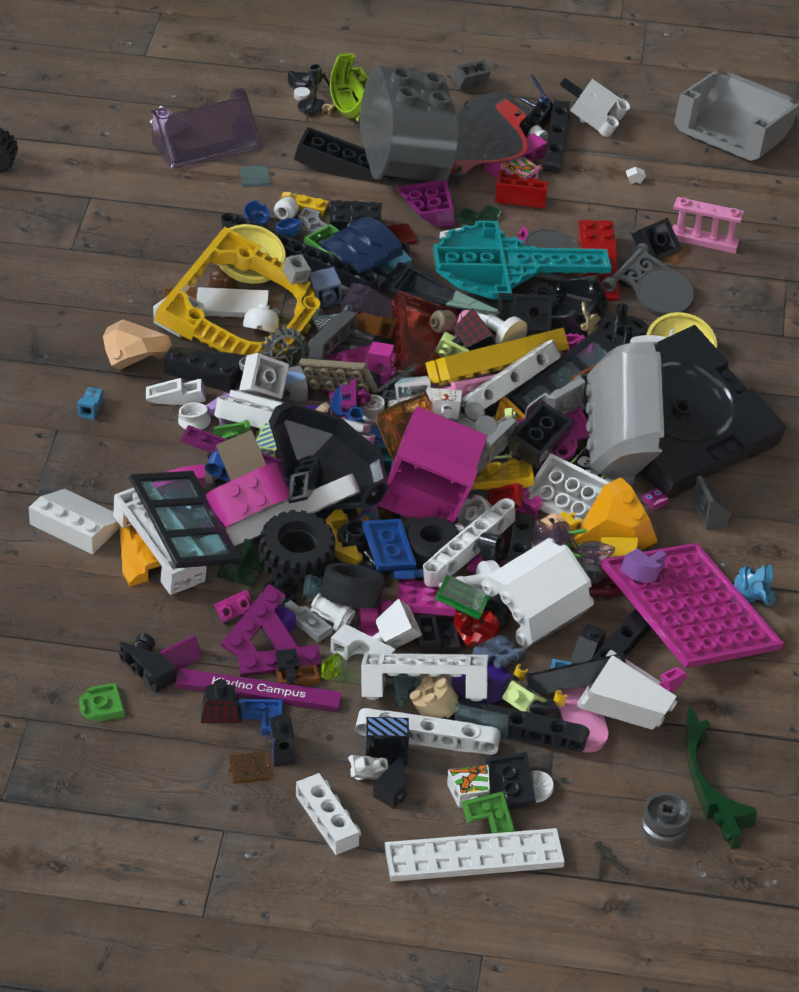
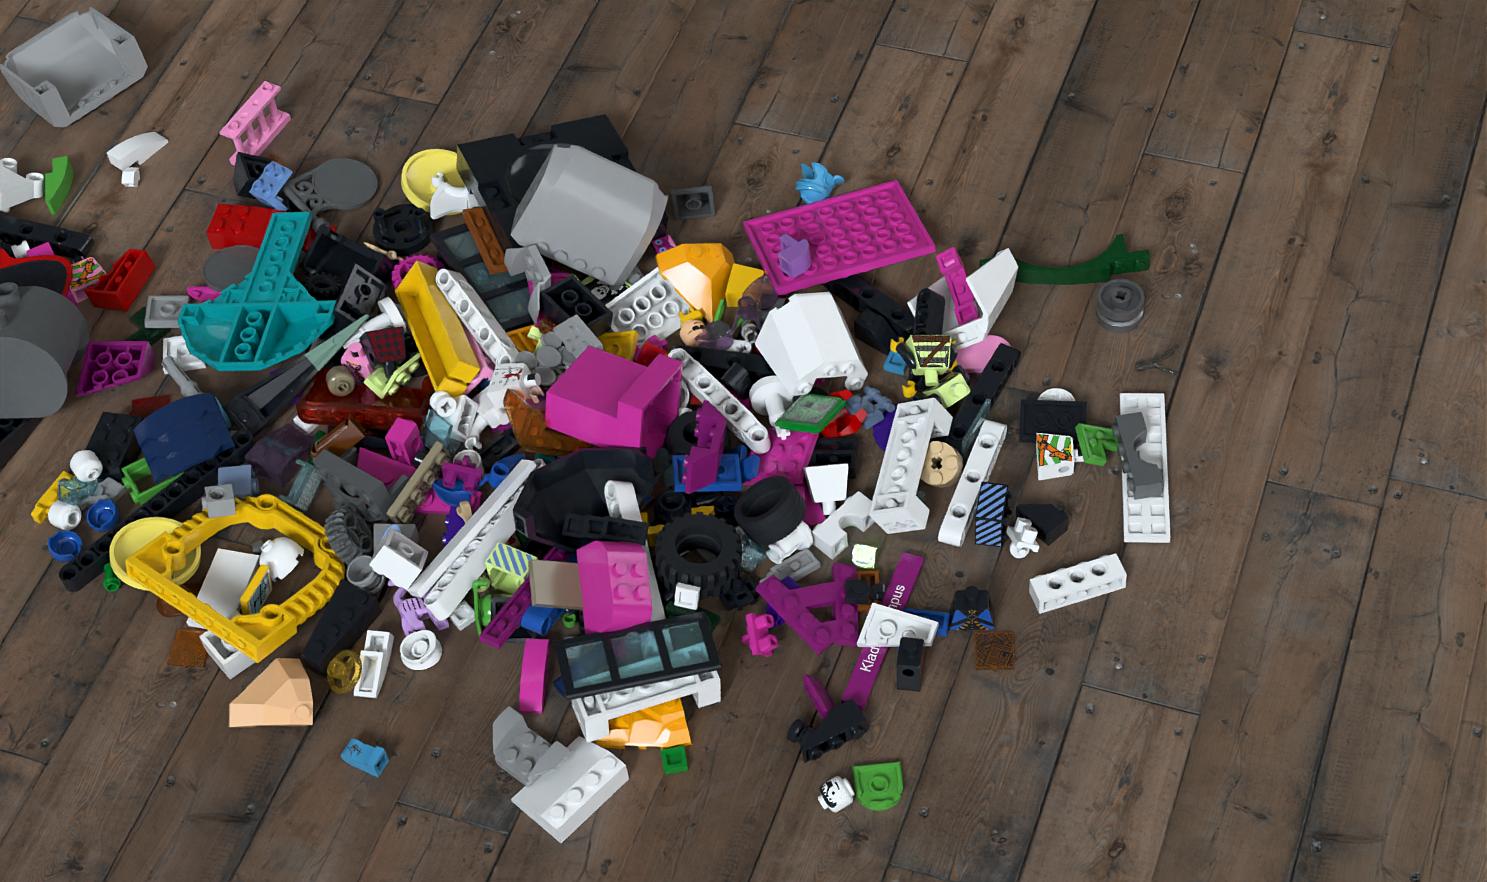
camera: 70 degrees left, 10 degrees up
(85, 673) = (836, 794): none -> white head
(104, 485) = (522, 750): none -> light grey piece
(111, 576) = (674, 760): none -> green tile
(163, 374) = (341, 670): none -> clear yellow piece
(225, 314) = (256, 591): none -> tile
(252, 544) = (687, 596): none -> white tile
(254, 690) = (887, 625): none -> white wing
(306, 206) = (76, 489): none -> clear light blue leg
(321, 200) = (86, 465): none -> white head
(397, 533) = (704, 462): none -> magenta slope
(417, 370) = (443, 399): none -> white wheel
(422, 247) = (187, 386): none -> light grey pin
(498, 831) = (1143, 477): none -> dark grey arch
(503, 216) = (164, 311): none -> light grey tile
(518, 416) = (545, 326): none -> clear orange arm
(550, 671) = (927, 355): none -> torso
(615, 138) = (58, 183): none -> bright green slope
(627, 246) = (269, 184): none -> medium blue bracket
(666, 171) = (136, 150): none -> white slope

